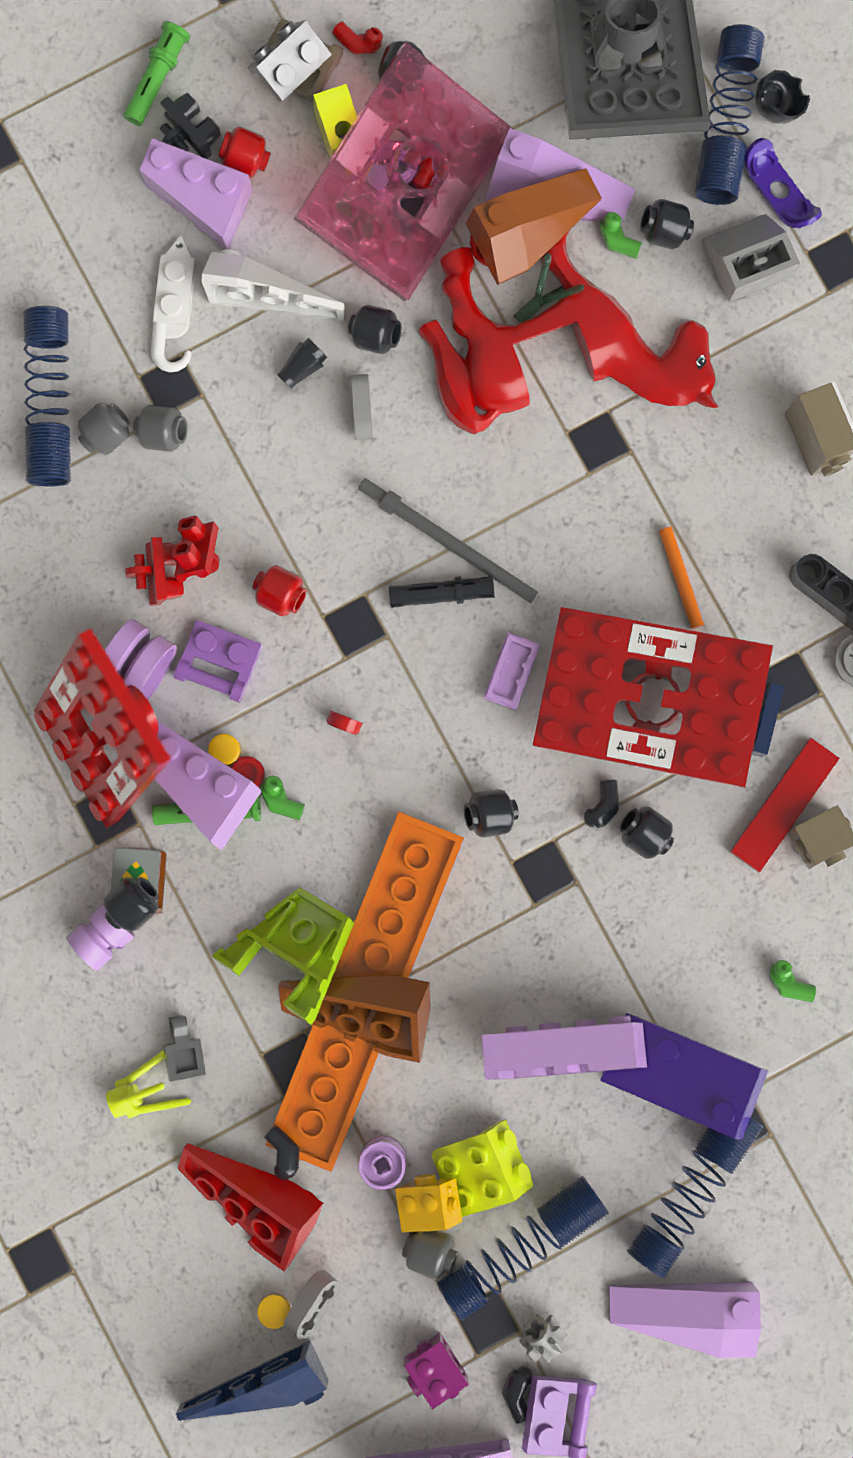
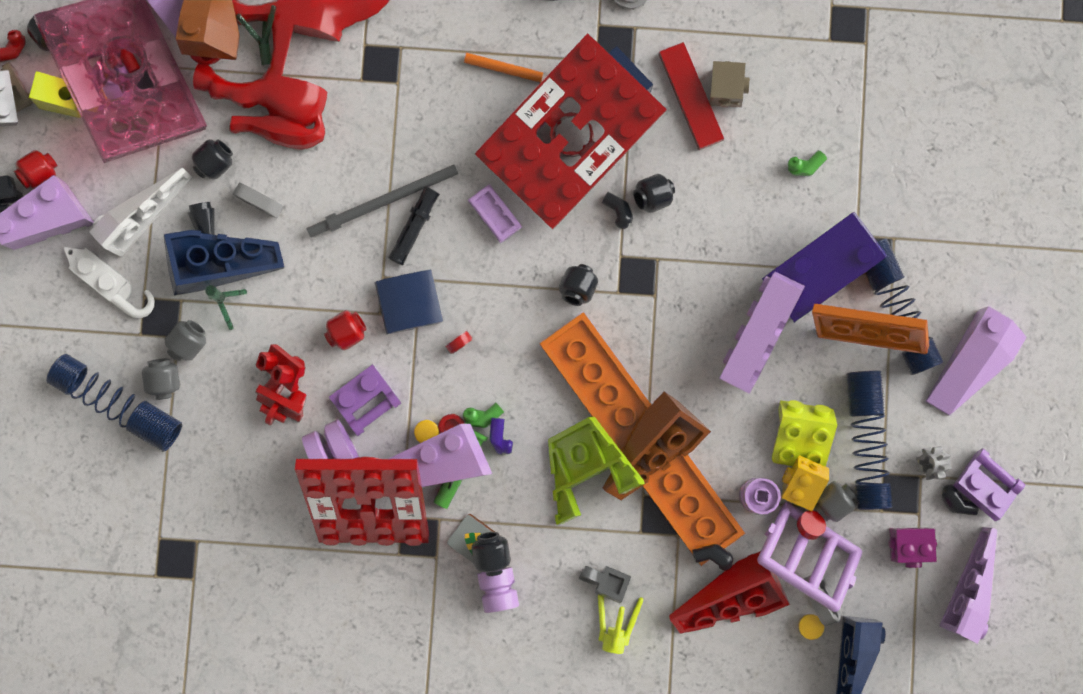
camera: 60 degrees left, 0 degrees up
(228, 434) = (218, 296): none -> clear green plant
(264, 400) = (216, 260): none -> dark blue wedge
(265, 830) = (497, 439): none -> dark purple arm
(313, 1246) = (787, 572): none -> lavender bar
(354, 639) = (408, 301): none -> dark blue slope
(386, 1241) = (811, 525): none -> tile
(646, 1172) = (871, 328): none -> orange tile

